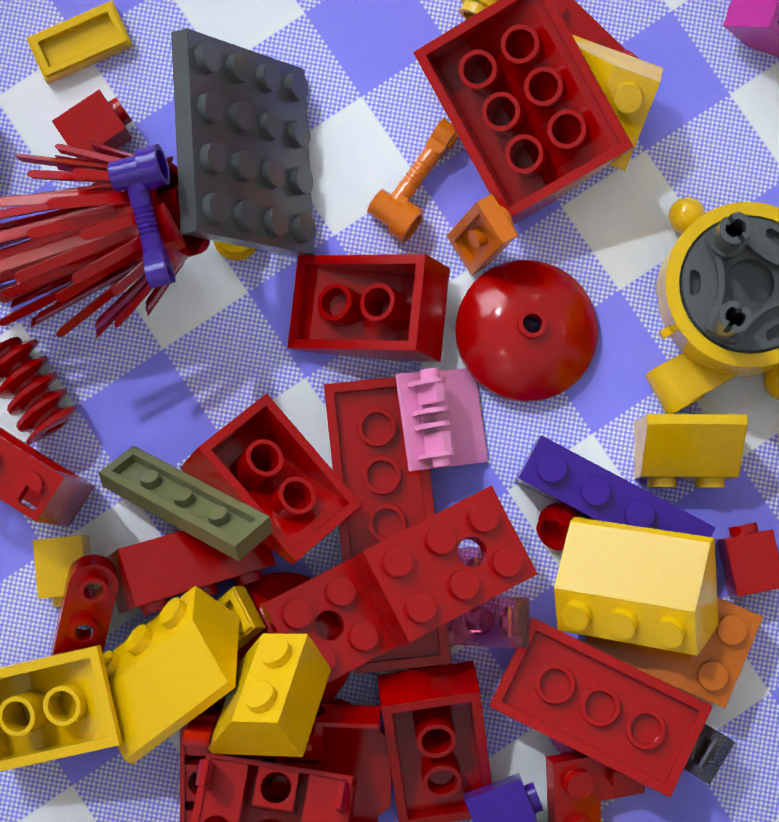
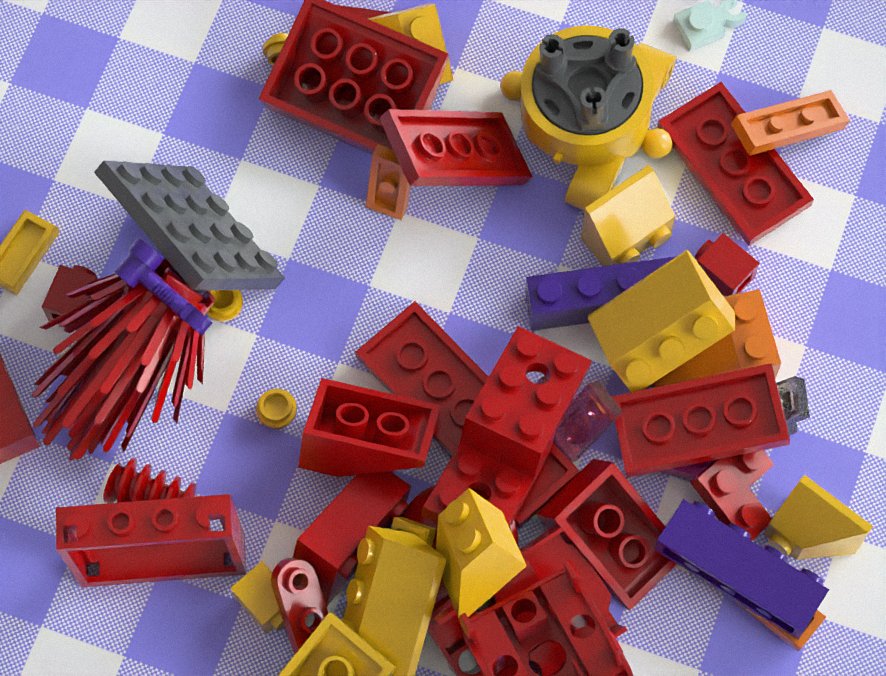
camera: 35 degrees left, 15 degrees down
(186, 502) = (319, 482): olive plate -> none
(210, 384) = (276, 408): none -> yellow plate
(370, 306) = (348, 282): red slope -> none
(395, 208) = (319, 210): orange brick -> none
(441, 418) = (451, 317): bright pink hinge -> none
(506, 355) = (464, 248): red dish -> none
(554, 525) = (580, 335): red plate -> none
(568, 249) = (455, 148): none -> red plate

